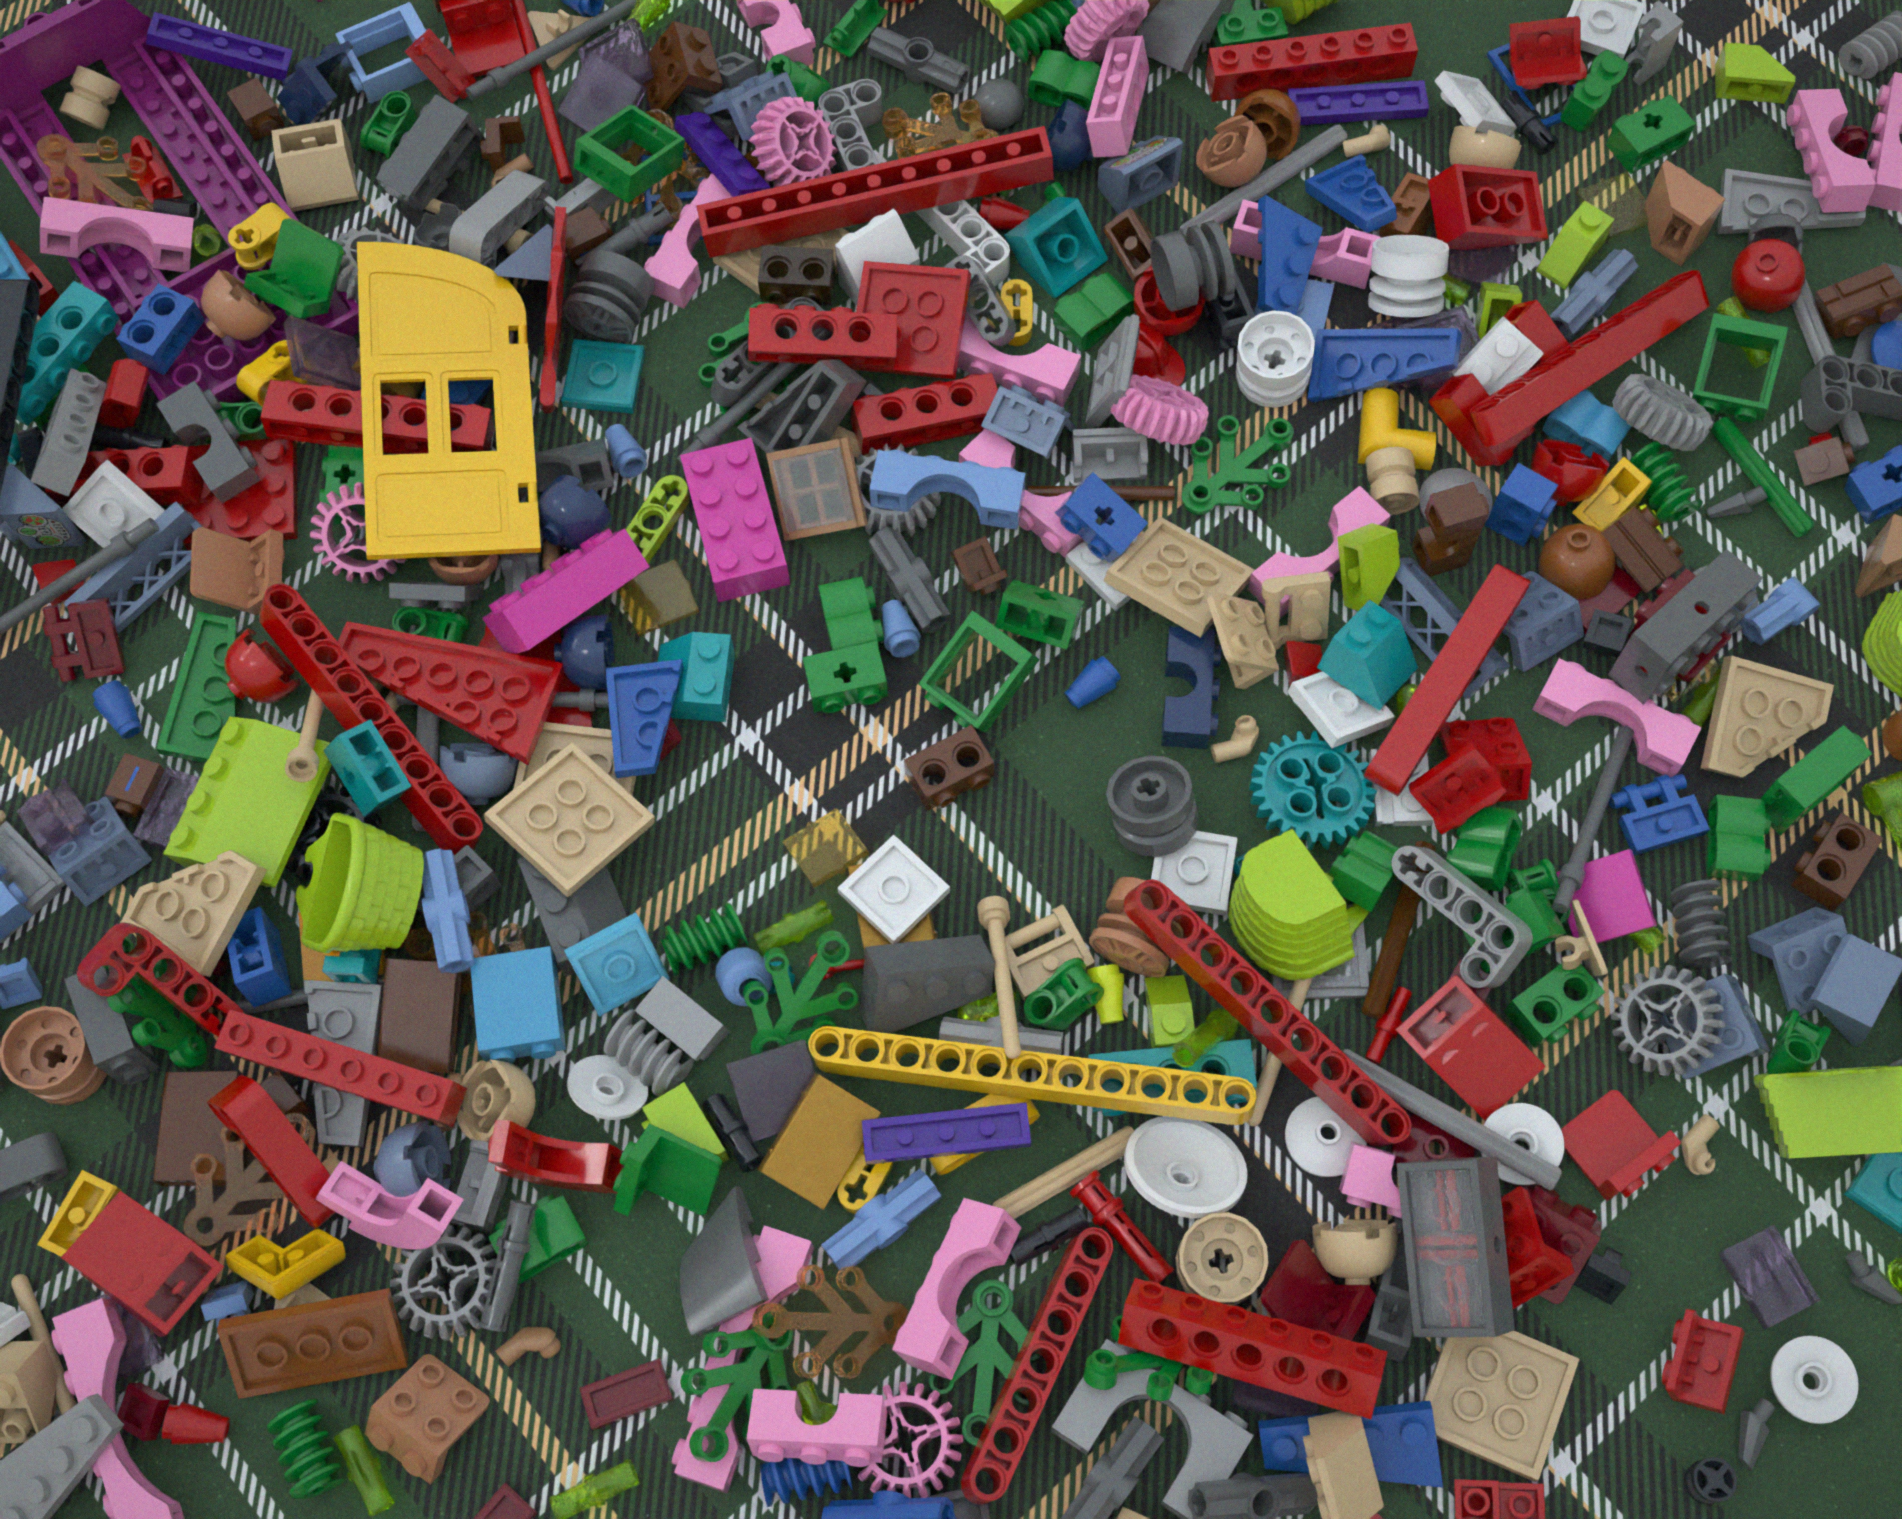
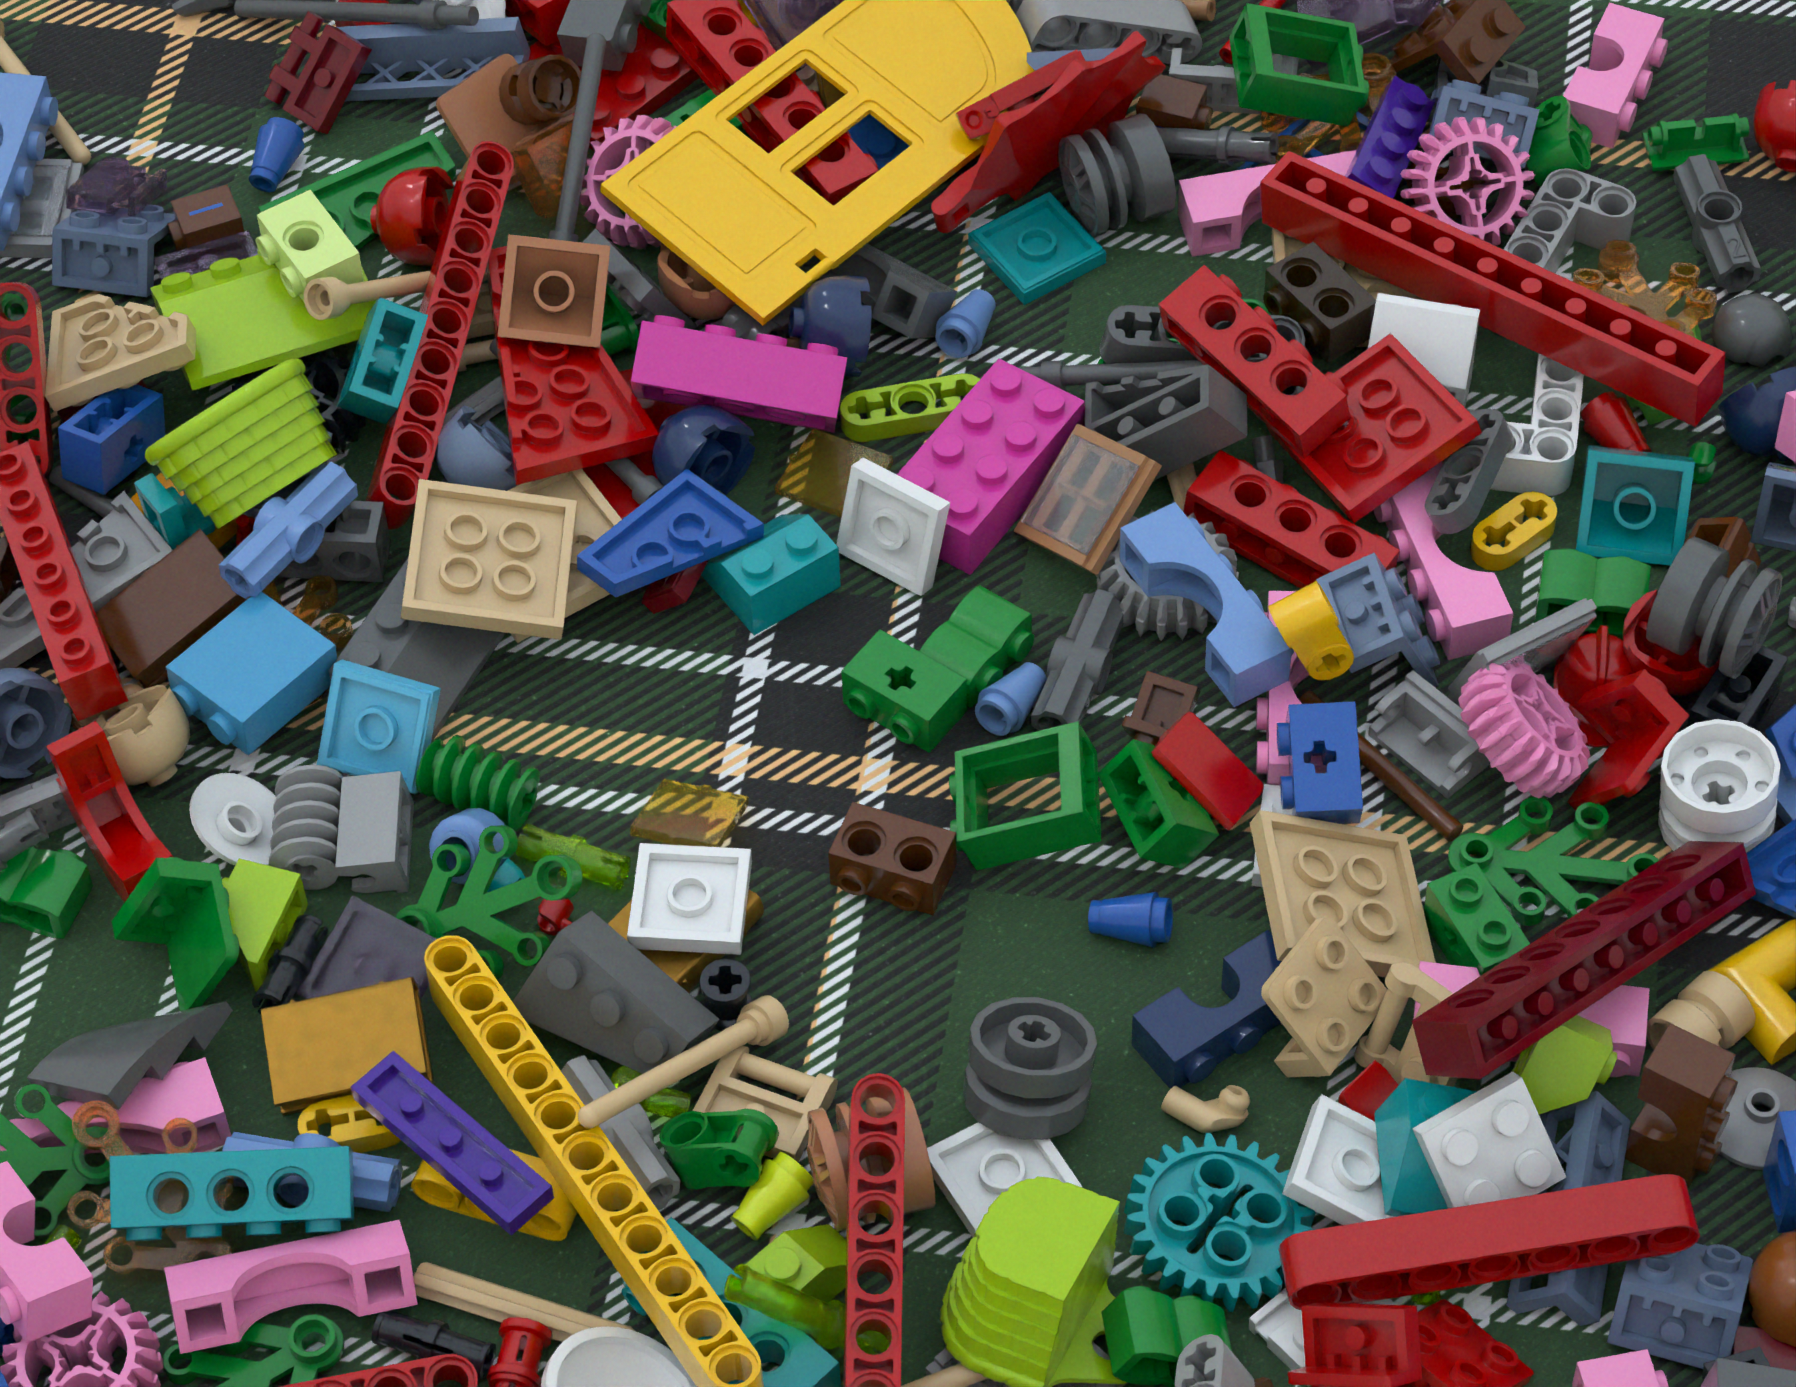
camera: 50 degrees right, 15 degrees down
(229, 734) = (306, 244): none -> yellowish green brick
(242, 531) = (540, 89): none -> reddish brown wheel
(297, 565) = (541, 167): none -> clear orange slope
(355, 607) = (579, 139): none -> dark grey piece
(414, 641) = (553, 291): none -> nougat slope
(522, 296) = (979, 117): none -> red hinge
(739, 596) = (892, 526): none -> white plate
(855, 1282) = (139, 1178): none -> teal brick
(959, 907) = (726, 990): none -> black bush
(1027, 453) = (1313, 632): none -> yellow piece
(1042, 573) = (1208, 769): none -> red slope
(1210, 370) = (1638, 723): none -> red bracket
(1250, 531) = (1471, 920): none -> green brick
(1337, 502) = (1582, 959): none -> dark red brick
(1398, 635) = (1490, 1146): none -> white plate

